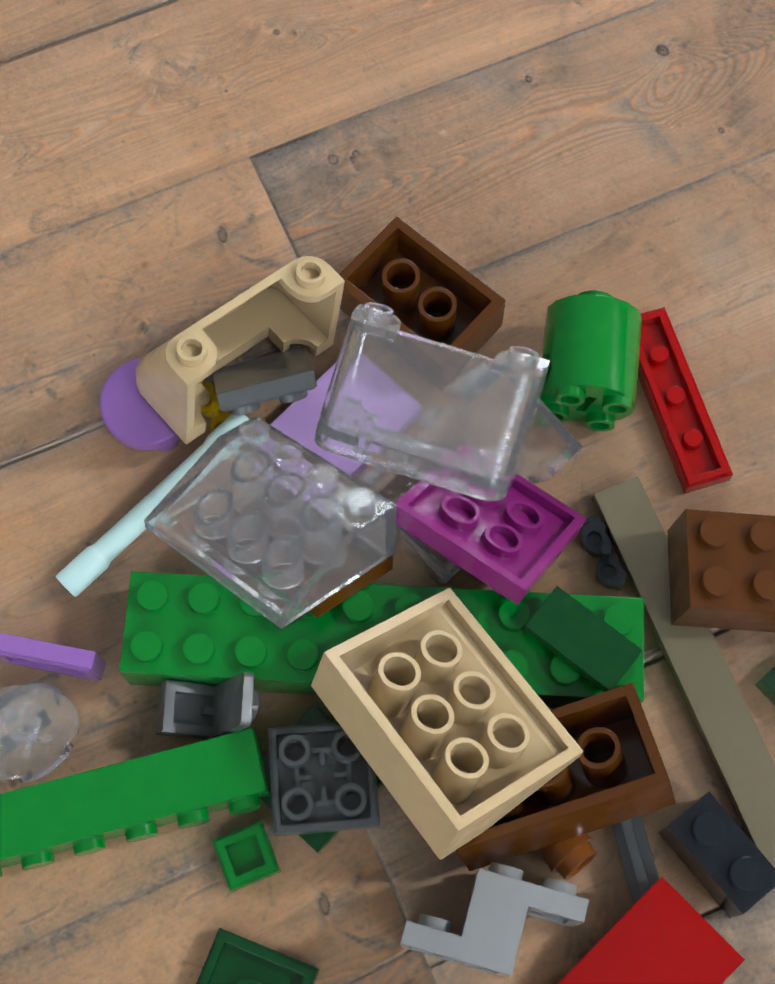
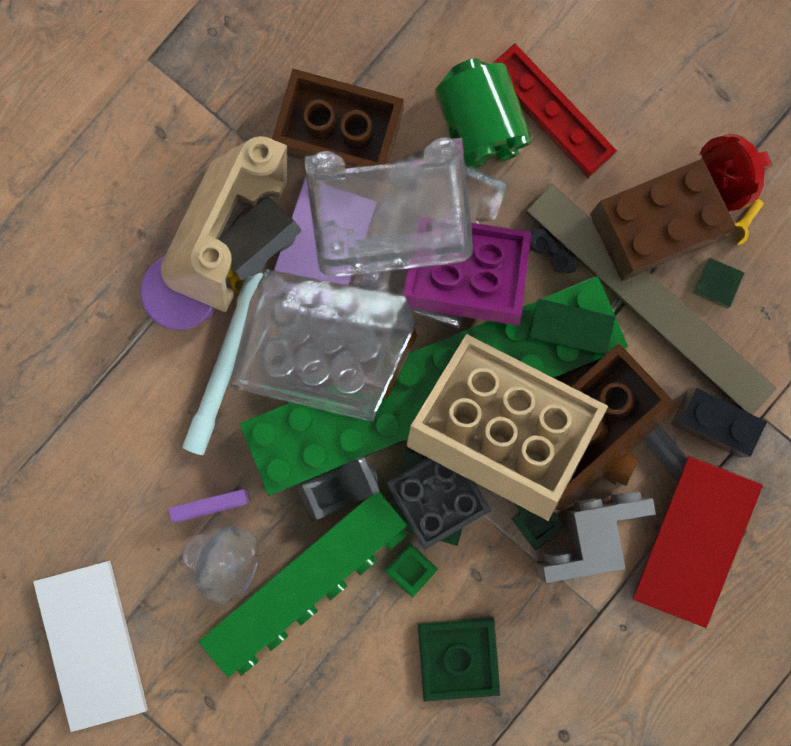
camera: 25 degrees left, 15 degrees up
(428, 876) = (535, 528): none -> dark green plate

